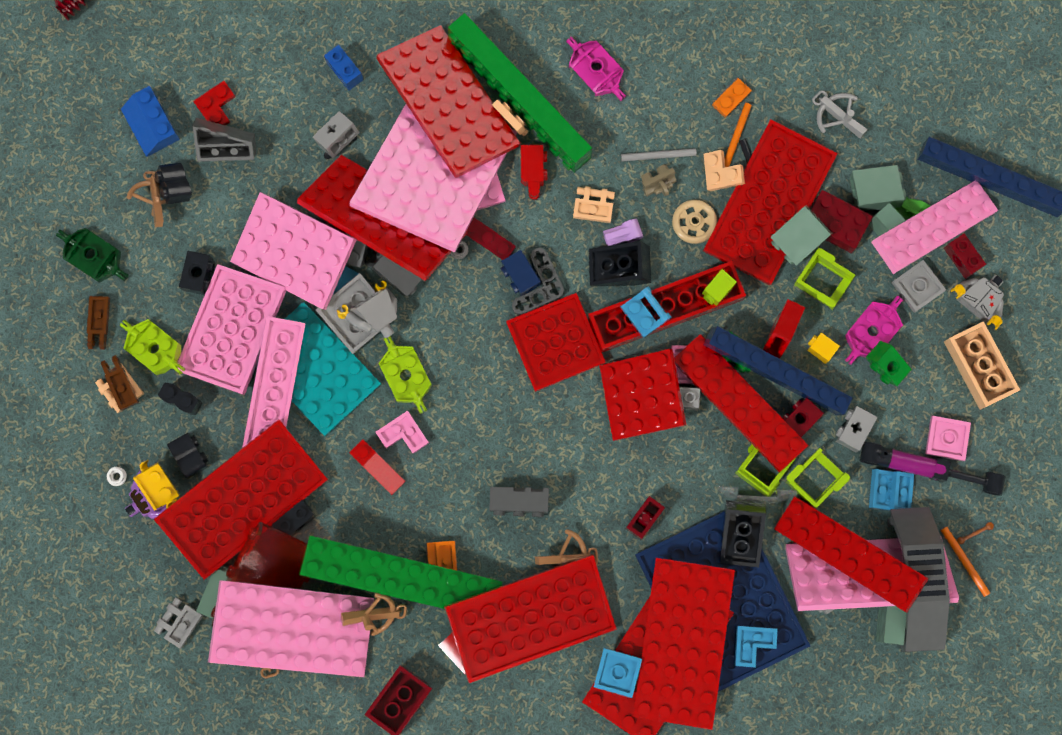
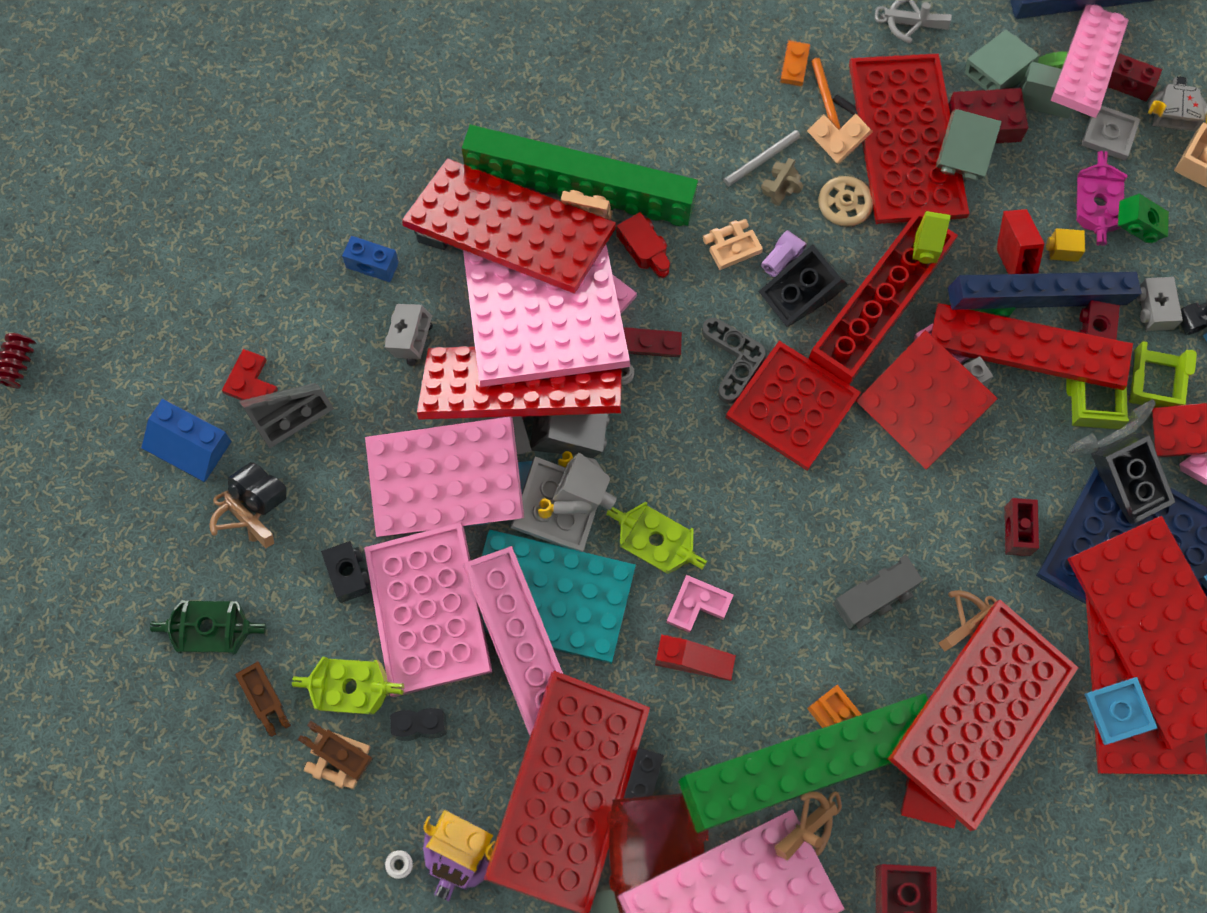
camera: 35 degrees left, 10 degrees down
(188, 455) = (470, 784): black brick -> none
(520, 273) = (707, 355): dark blue brick -> none
(601, 81) = (654, 119): dark pink plate -> none
(641, 316) = (869, 318): dark azure plate -> none
(828, 261) = (1011, 160): lime piece -> none

